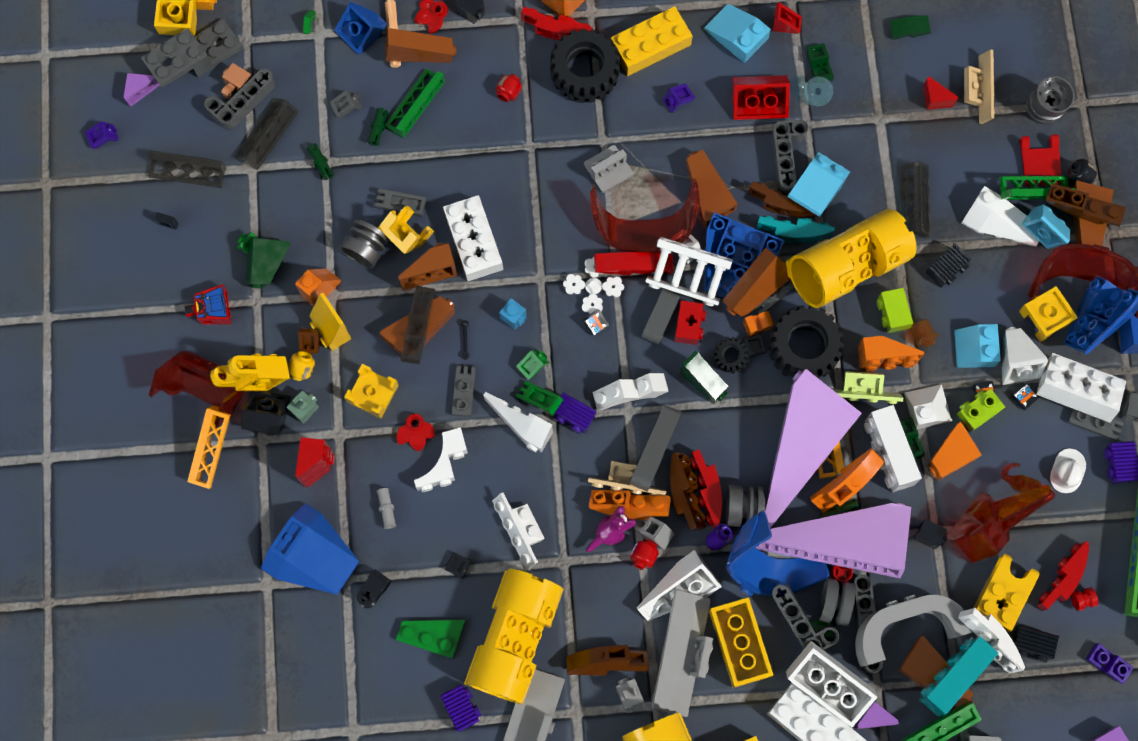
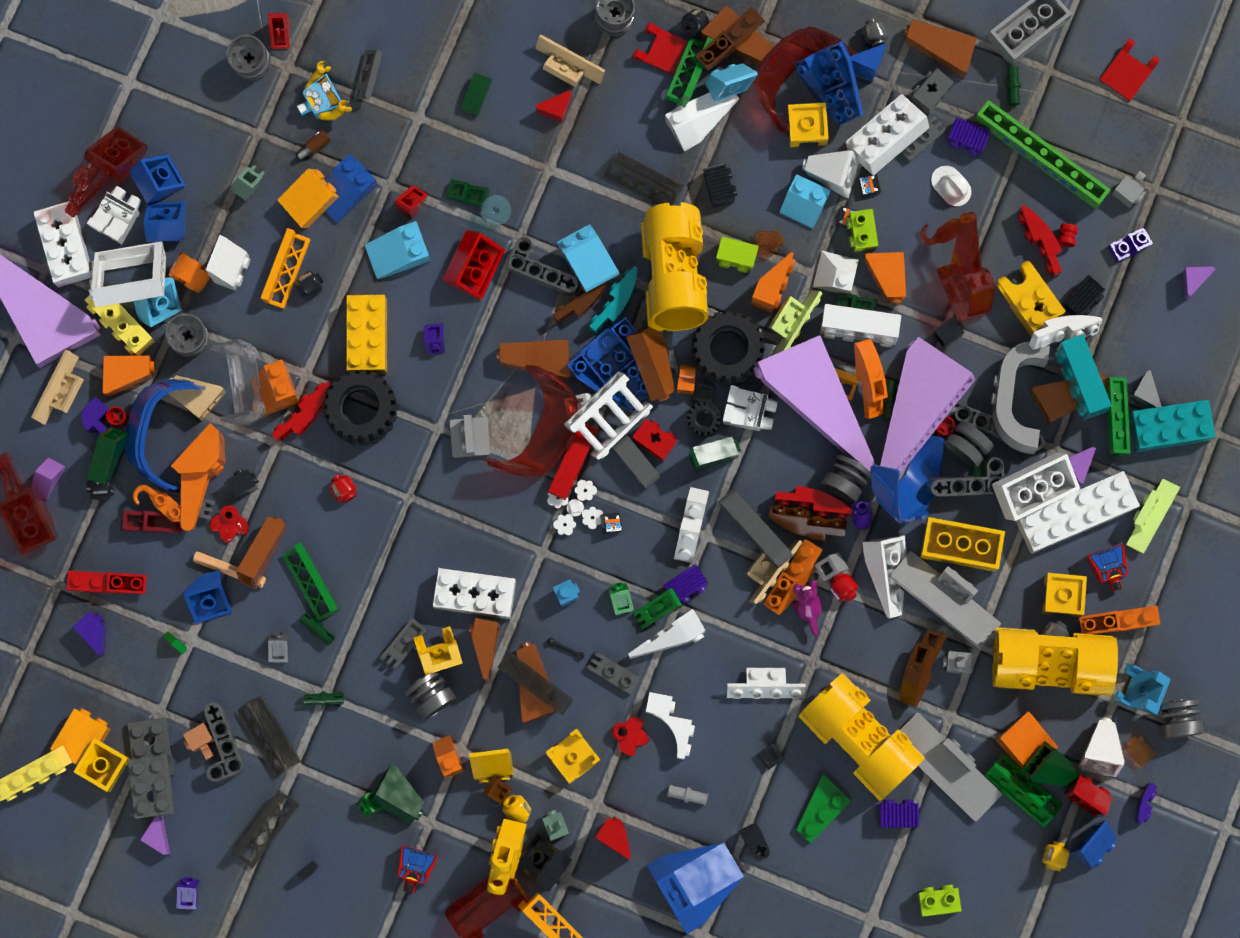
camera: 60 degrees left, 5 degrees up
(762, 391) = (747, 409): none -> white hips

